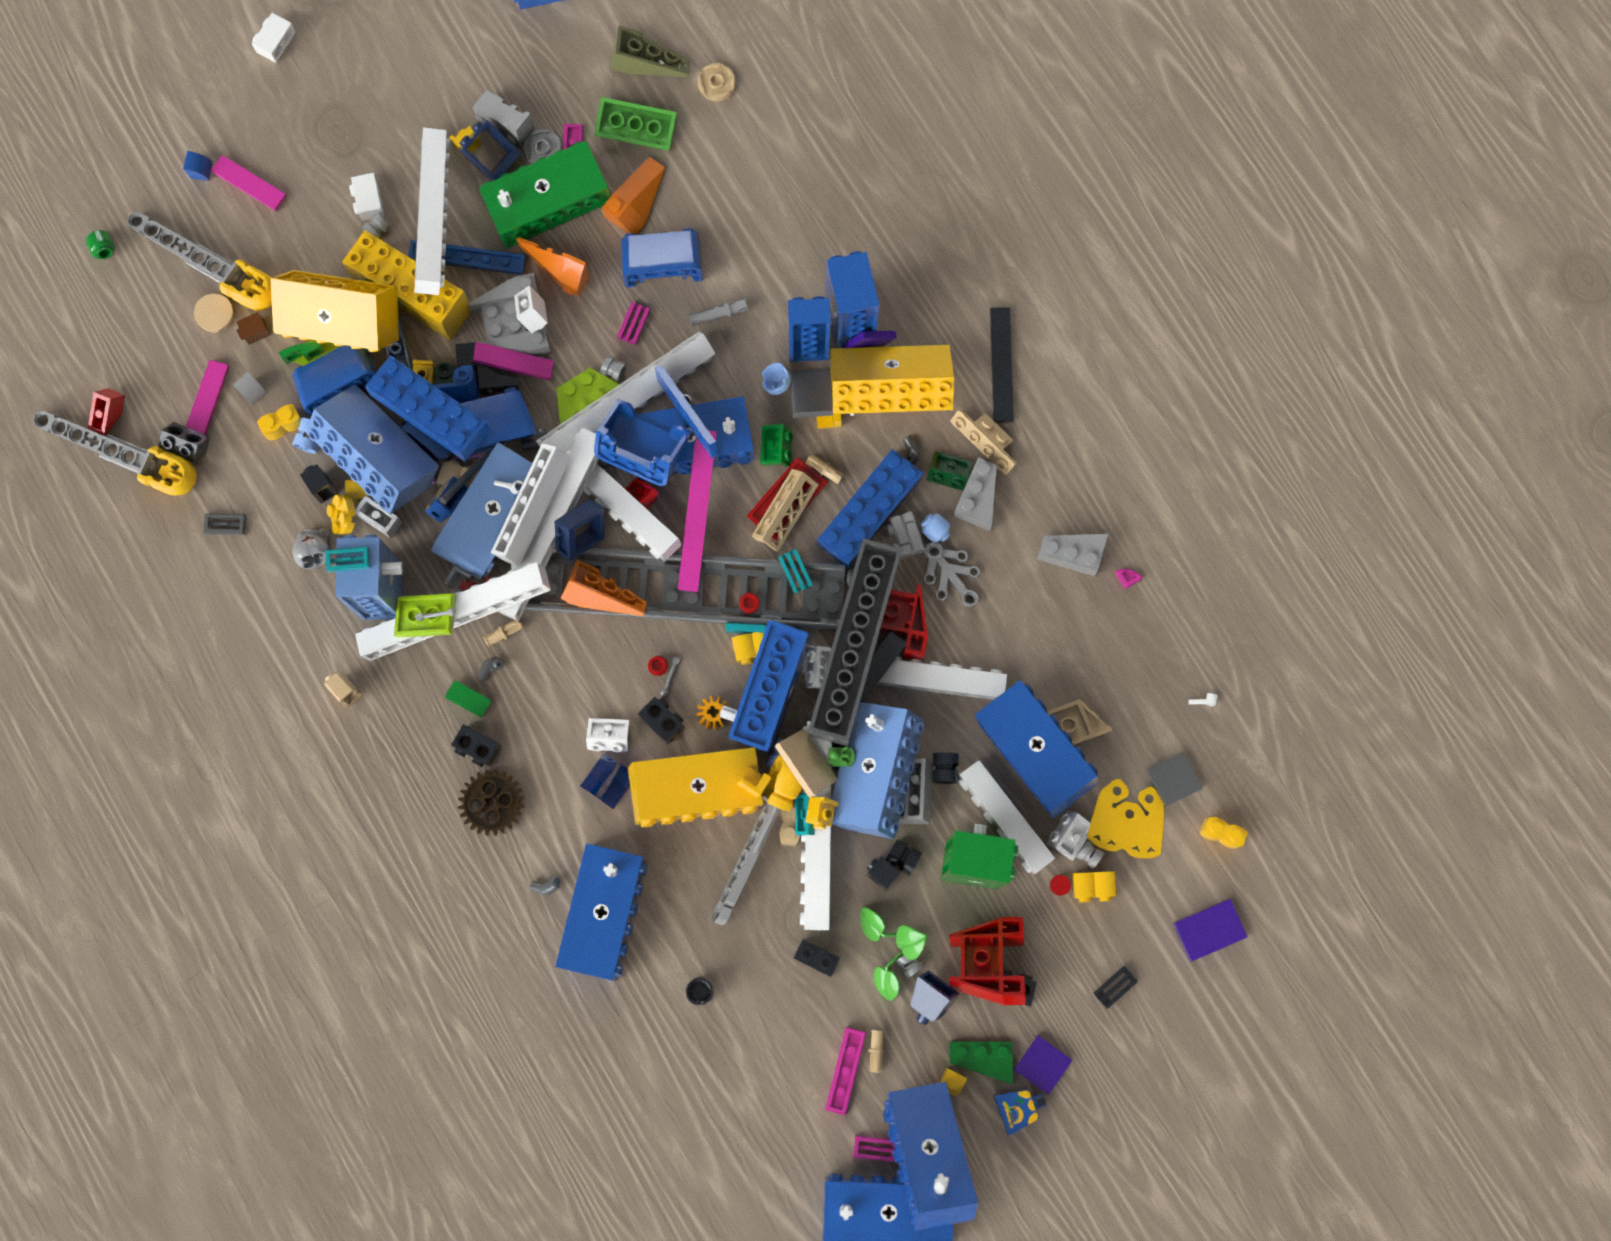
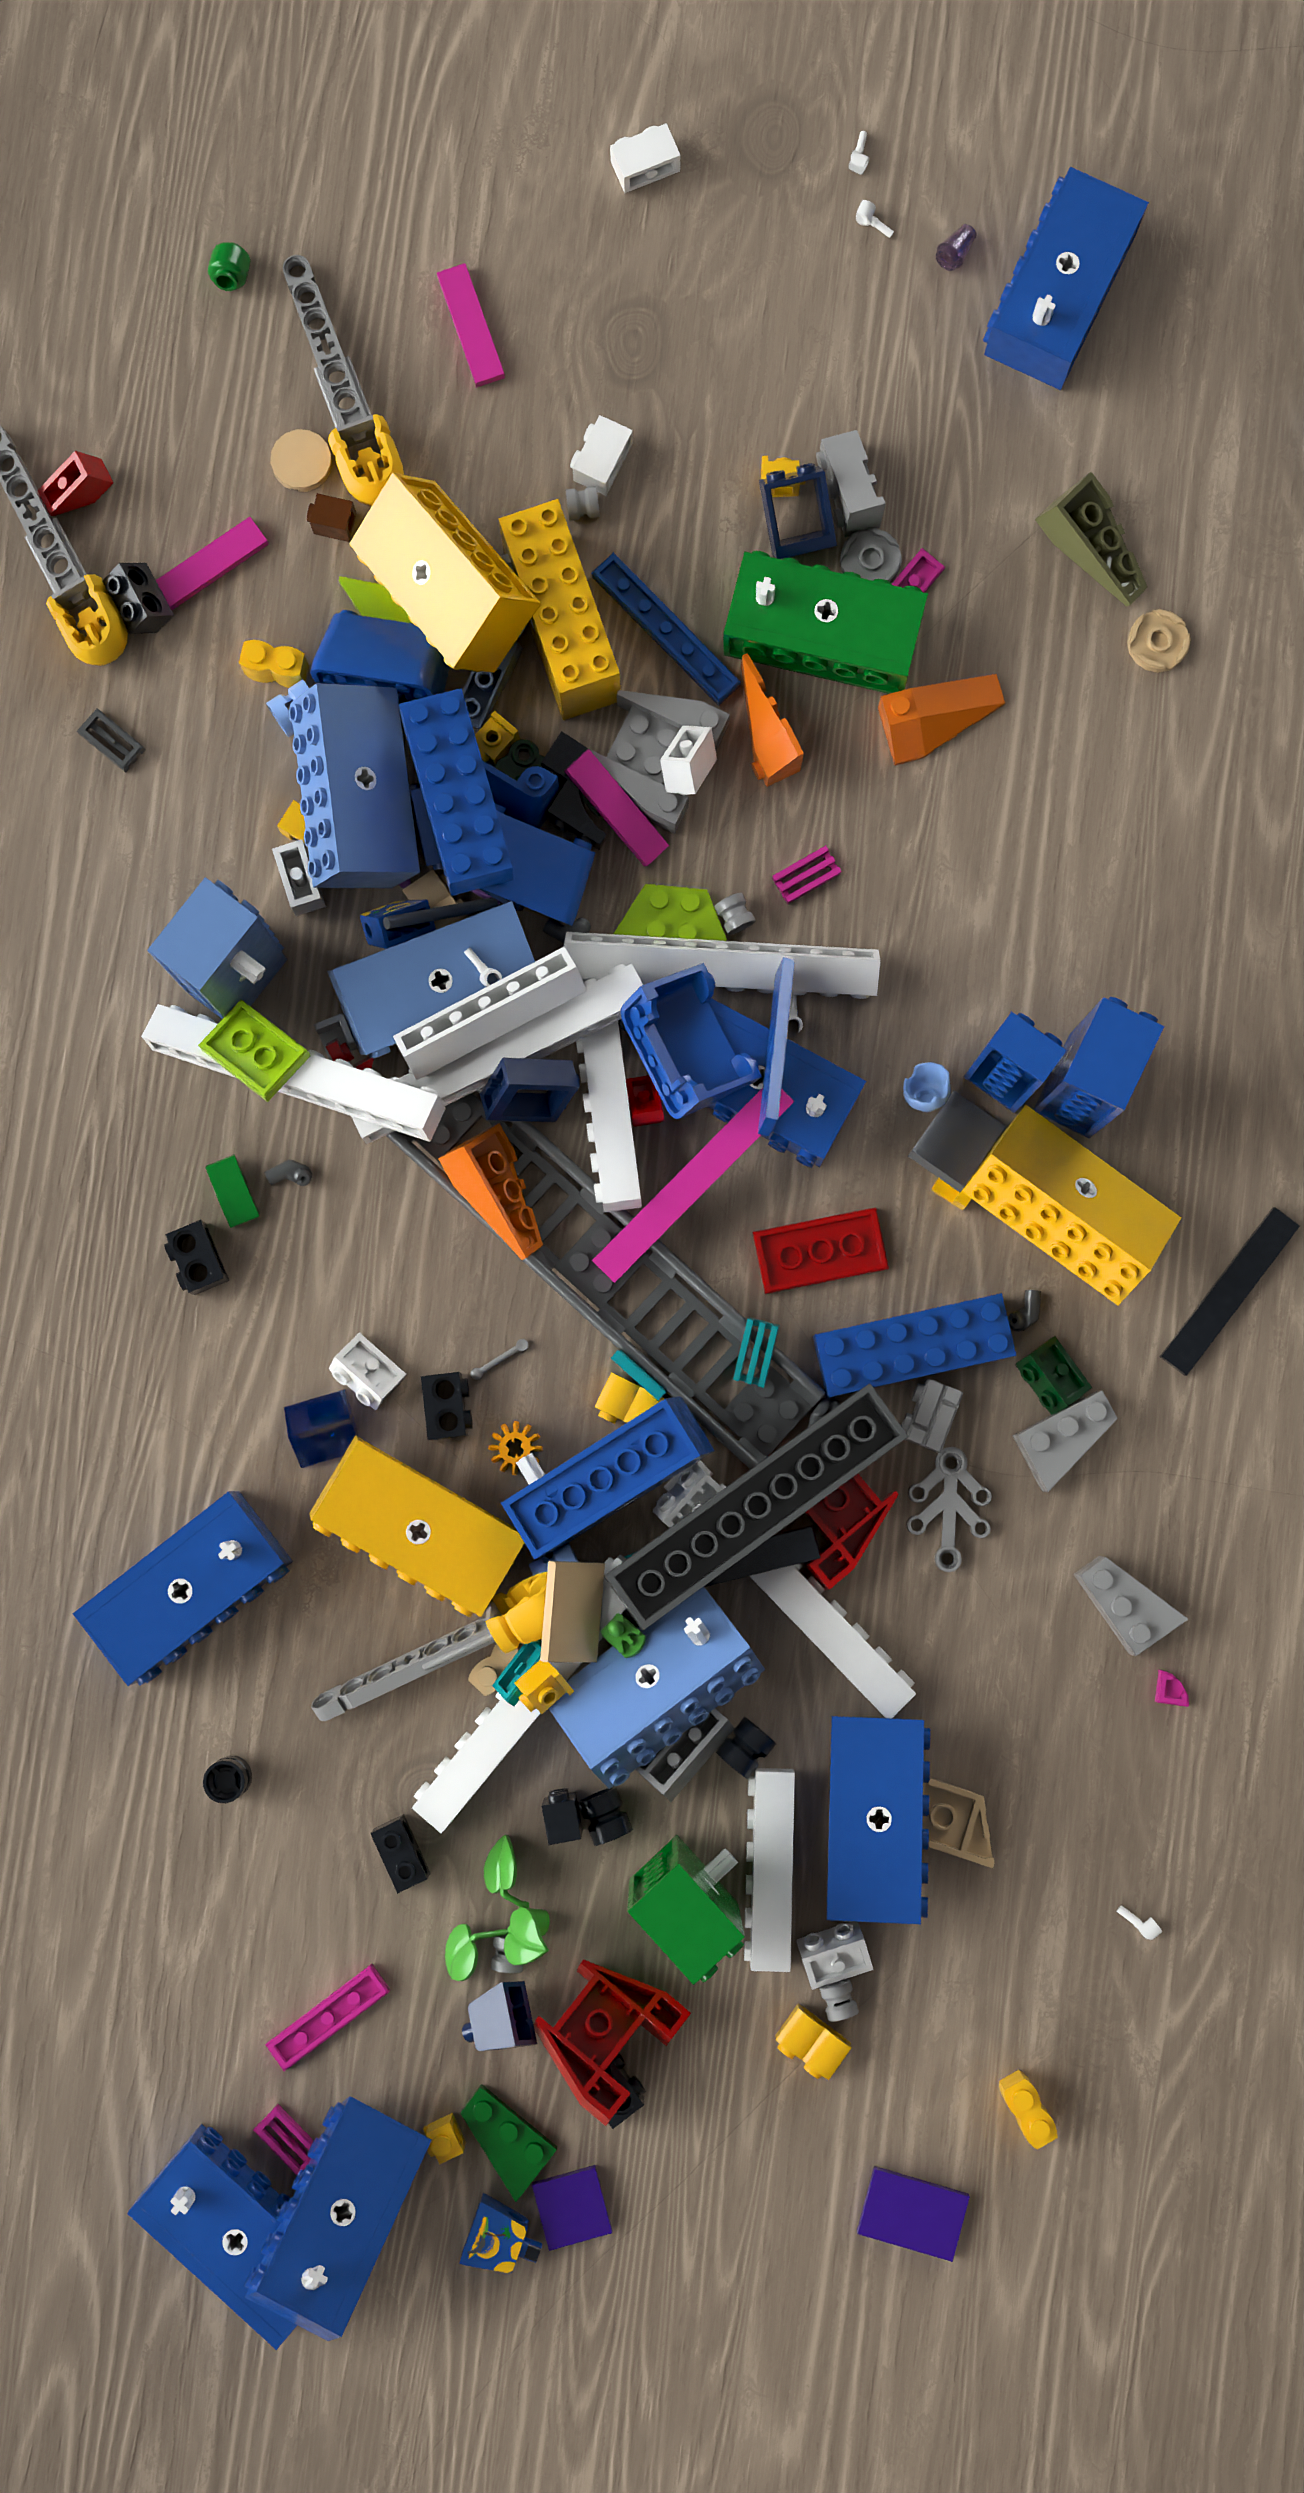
camera: 40 degrees right, 5 degrees up
(197, 166) = (423, 255): blue brick -> none
(249, 388) = (269, 591): light grey brick -> none
(308, 350) = (374, 597): green slope -> none
(310, 547) = (189, 852): light grey piece -> none
(318, 483) = (258, 778): black brick -> none
(341, 514) = (258, 837): yellow plate -> none
(342, 688) = (89, 1060): tan brick -> none
(365, 558) = (220, 931): teal tile -> none
(420, 617) = (246, 1050): light grey hinge -> none
(430, 212) = (660, 536): white brick -> none
(476, 791) = (154, 1315): dark brown gear -> none
(502, 632) = (338, 1141): tan axle -> none
(546, 888) = (145, 1501): dark grey arm -> none
(636, 124) = (1012, 618): bright green slope -> none
(657, 665) = (495, 1334): red plate -> none
(661, 256) = (907, 816): windscreen -> none
(724, 310) = (923, 943): light grey pin -> none
(749, 603) = (667, 1346): red tile -> none
(753, 781) = (490, 1581): yellow panel -> none
(776, 445) = (860, 1171): green bracket -> none
(782, 506) = (804, 1257): tan fence -> none
(825, 469) = (897, 1249): tan axle -> none
(871, 339) = (1086, 1133): dark purple tile -> none
(876, 1051) = (383, 2024): tan axle -> none
(935, 528) = (976, 1435): light blue head -> none
(987, 438) = (1135, 1372): tan bracket -> none
(1060, 885) = (771, 2006): red tile -> none
(1125, 832) = (906, 2008): yellow piece -> none
(1128, 975) = (730, 2200): black tile -> none
(1174, 779) = (1021, 1990): dark grey tile -> none

